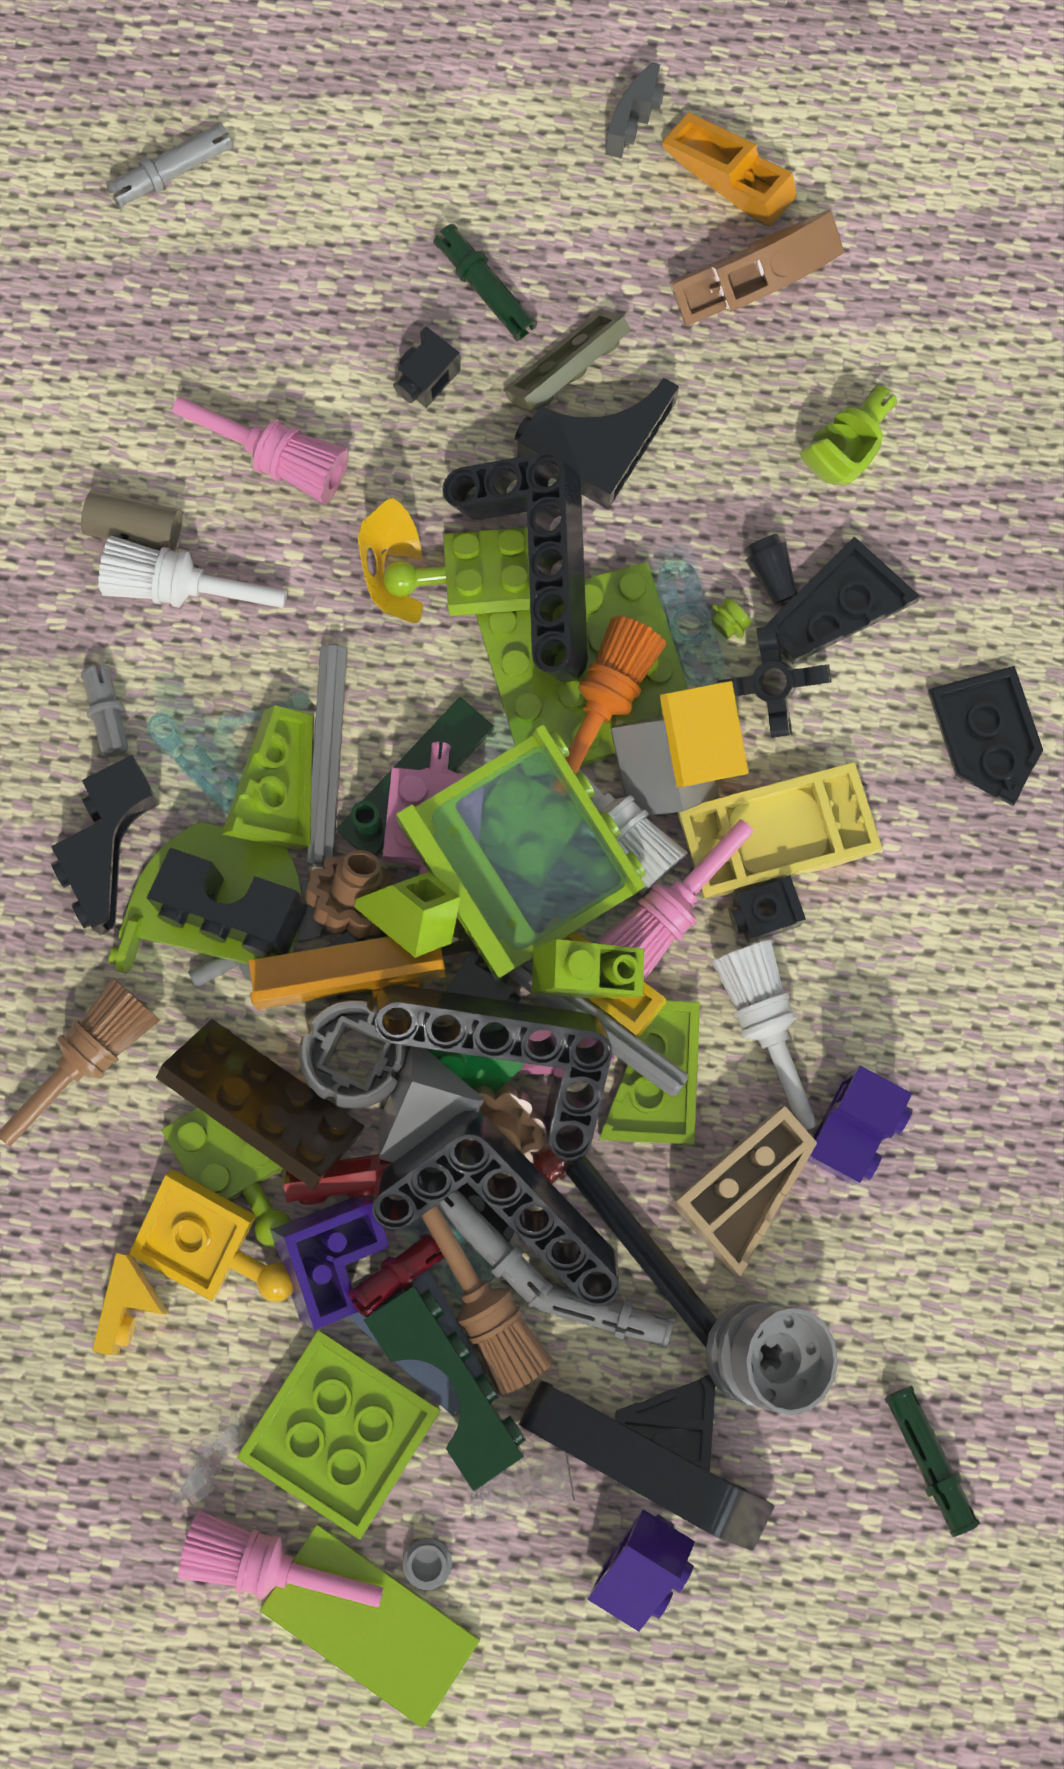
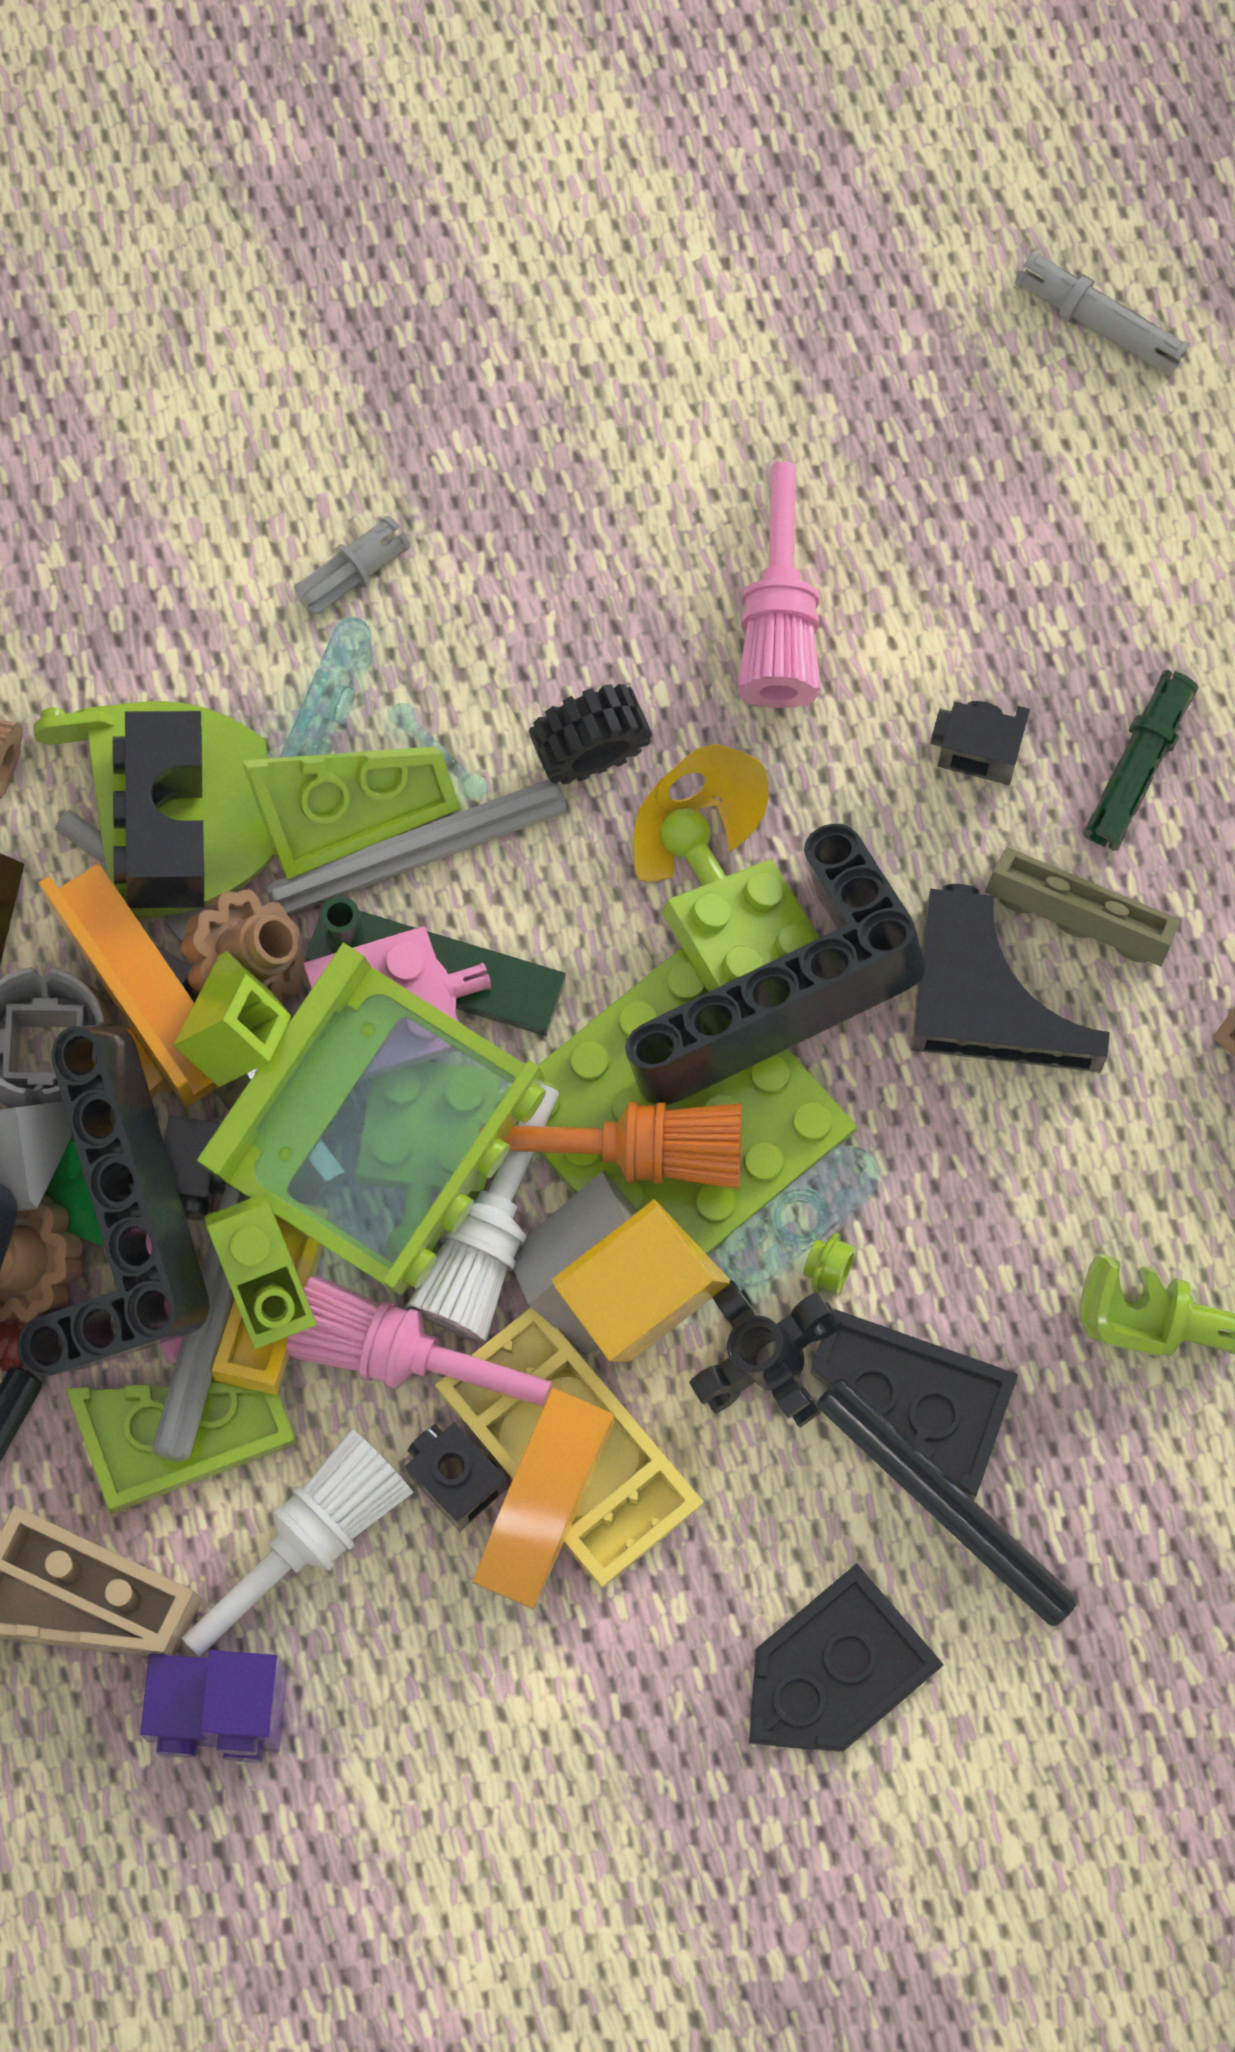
camera: 70 degrees right, 5 degrees down
(93, 855) = (157, 635): black arch -> none
(125, 517) = (605, 484): dark tan pin -> none
(170, 577) = (552, 554): white piece -> none
(307, 604) = (590, 733): none -> black tyre
(772, 567) = (927, 1287): black cone -> none
(816, 855) = (543, 1498): none -> light orange slope
(915, 616) = (947, 1502): none -> black axle

